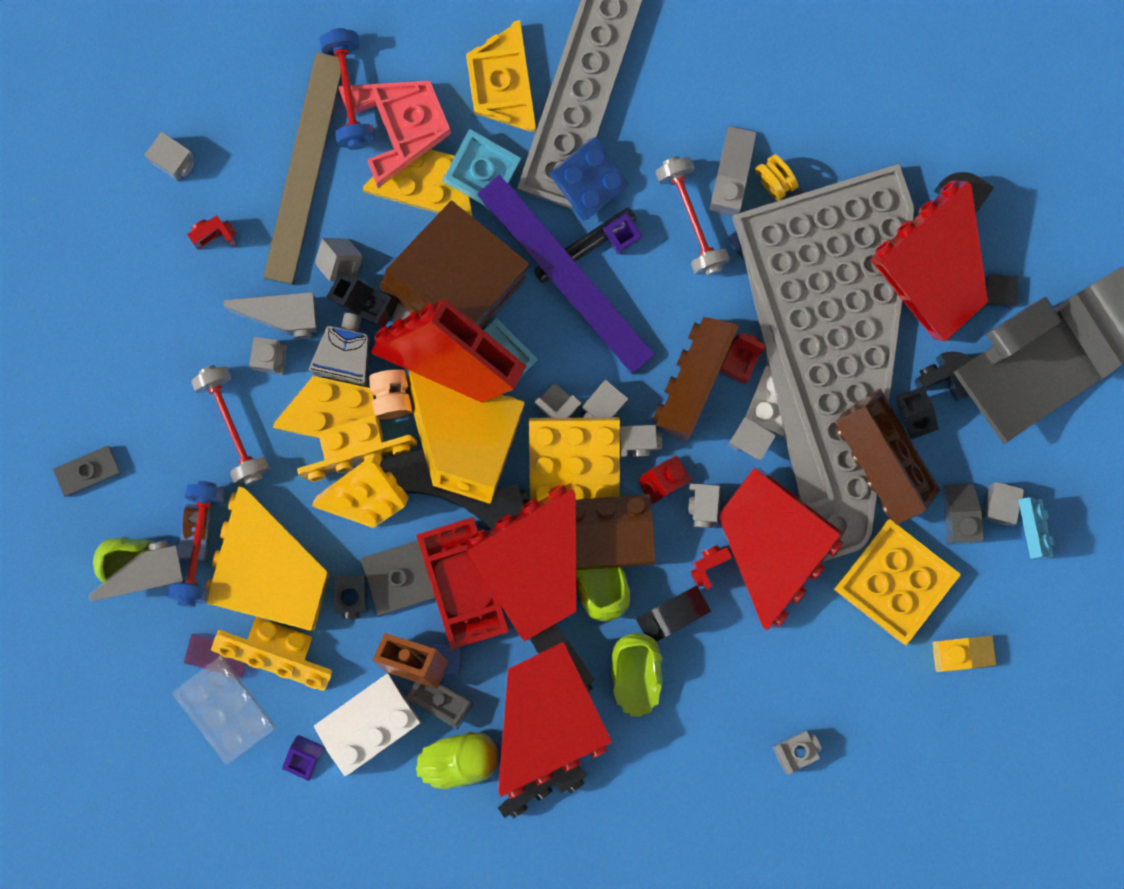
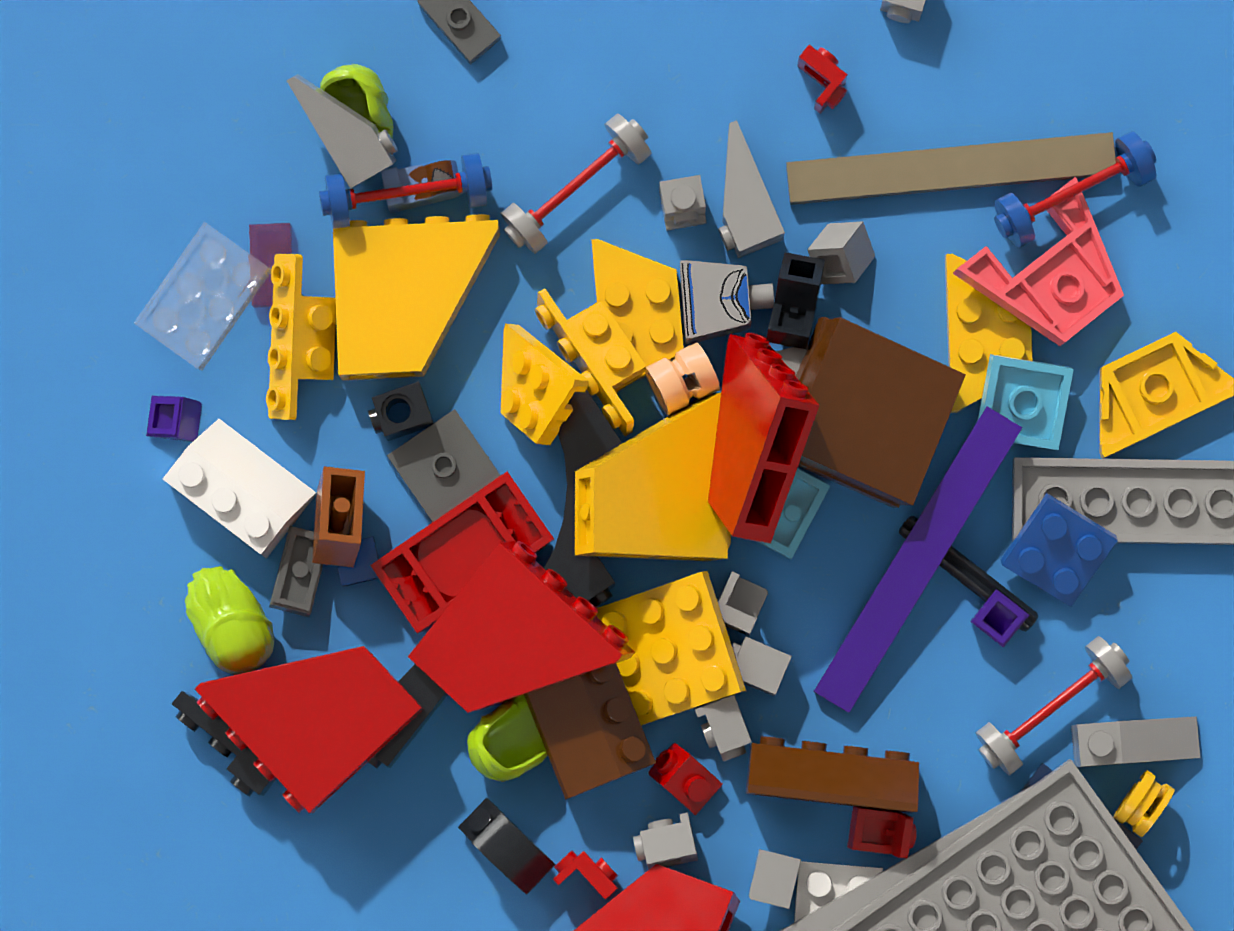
camera: 80 degrees right, 0 degrees up
(636, 673) = (413, 820): lime hair -> none

